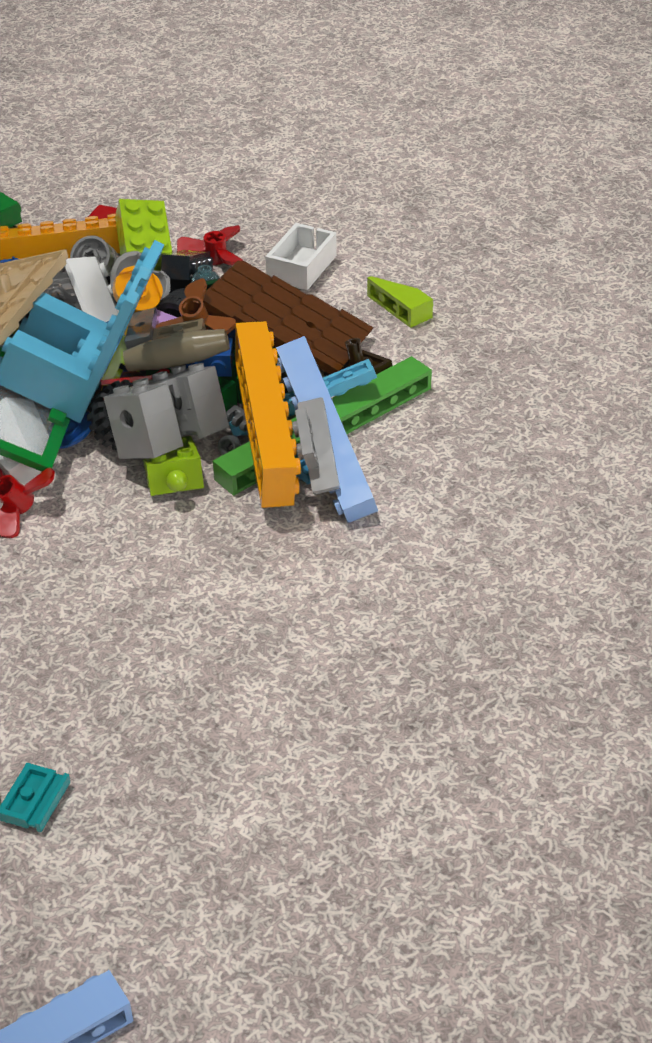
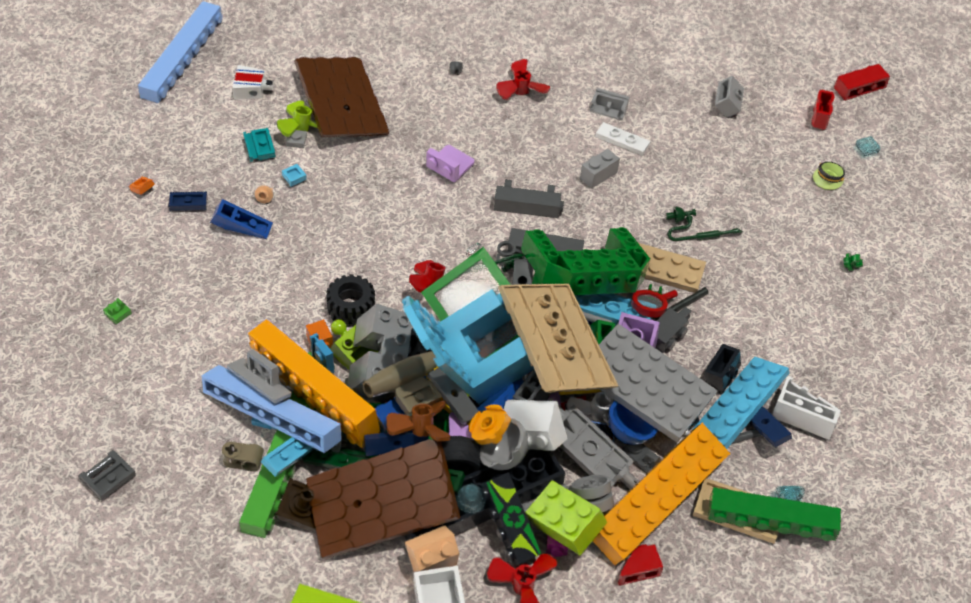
camera: 140 degrees right, 10 degrees up
(34, 720) = (294, 175): none -> medium azure plate
(102, 709) = (264, 194): none -> light nougat plate
(130, 515) = (347, 288): none -> black tyre
(172, 685) = (240, 220): none -> blue slope
(201, 500) = (321, 328): none -> orange brick
(212, 756) = (187, 201): none -> dark blue plate
(232, 438) = (322, 352): none -> dark azure plate
(259, 819) = (141, 185): none -> orange tile
(284, 266) = (433, 550): none -> light nougat slope
(383, 432) = (243, 457): none -> dark tan piece
(417, 651) = (117, 311): none -> bright green tile
(539, 473) = (111, 478): none -> dark grey plate

